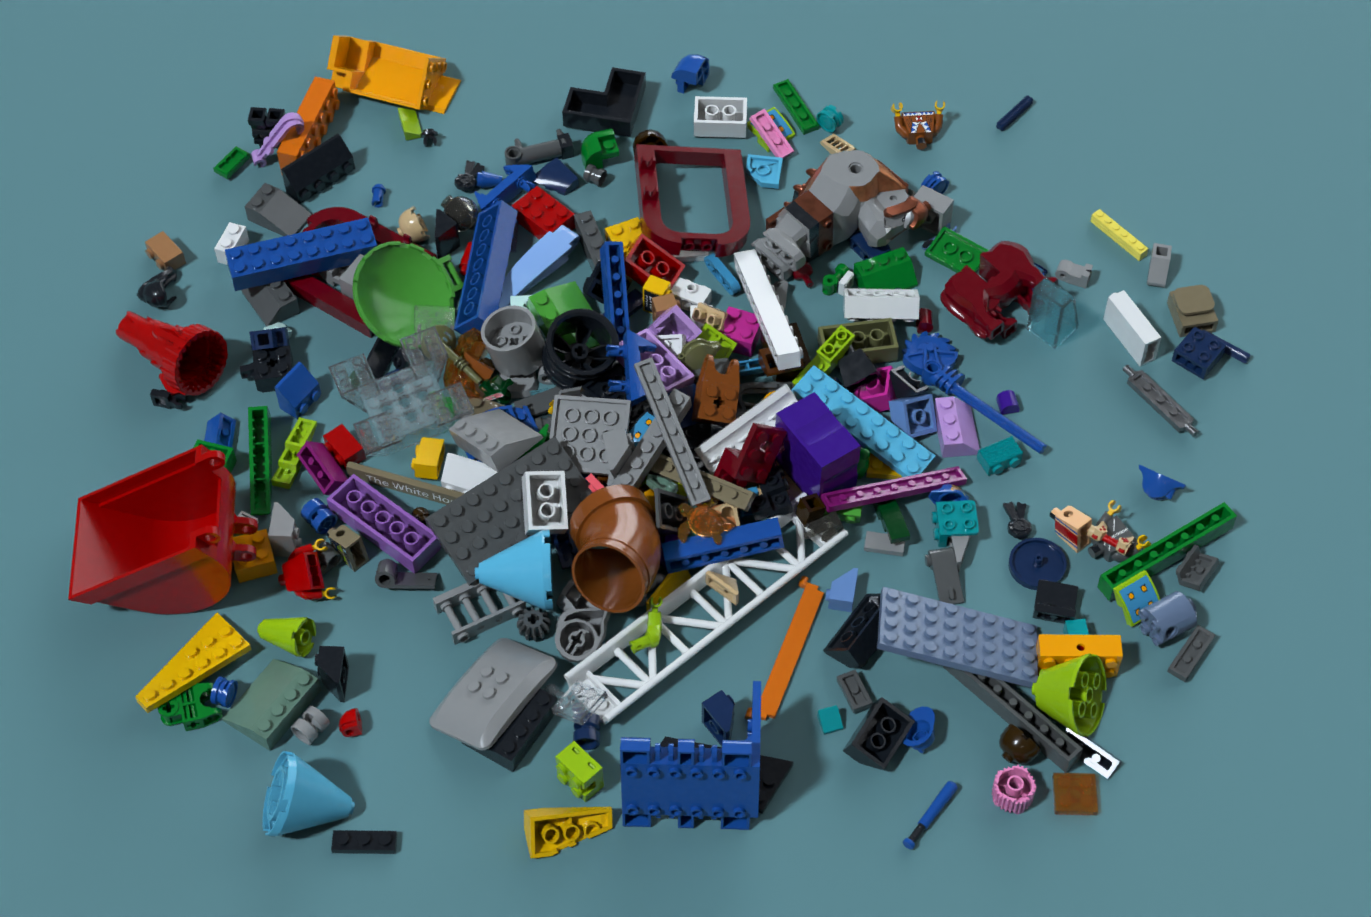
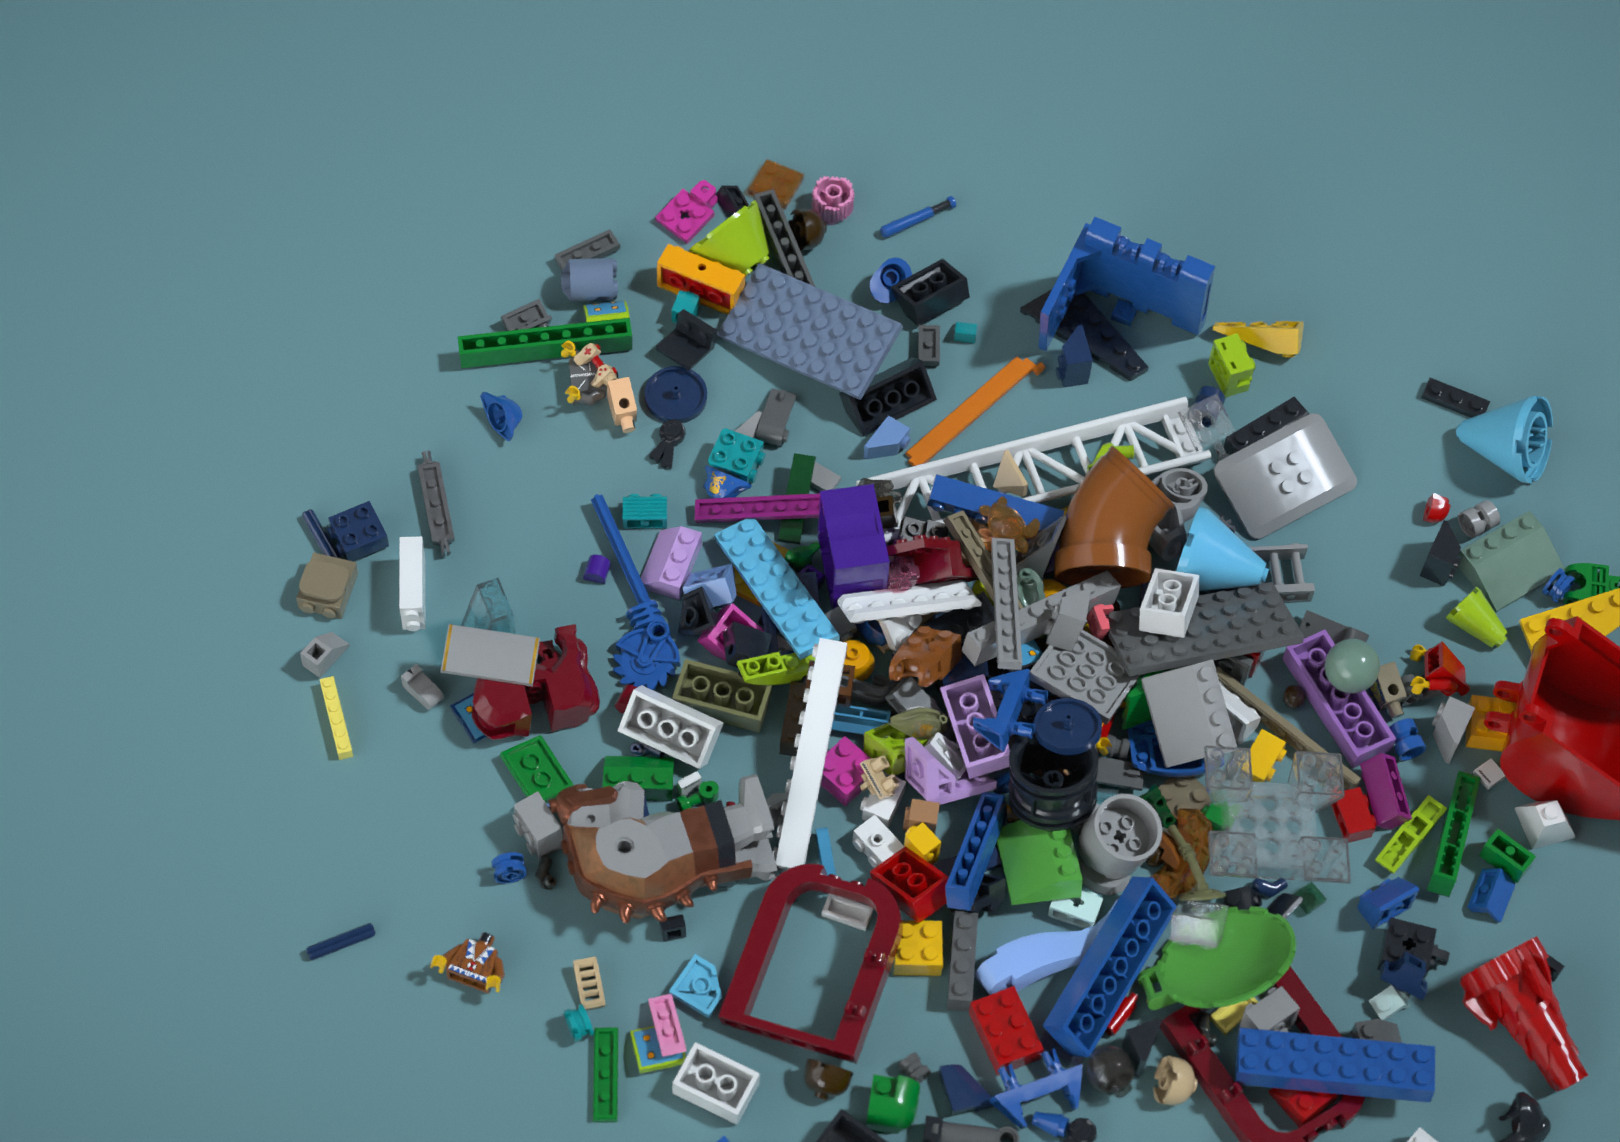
camera: 160 degrees left, 5 degrees up
(378, 518) = (1352, 666): none -> sand green piece
(583, 371) = (1068, 726): none -> dark blue piece
(1022, 277) = (490, 655): none -> light grey slope
(1130, 736) = (697, 204): none -> dark pink plate

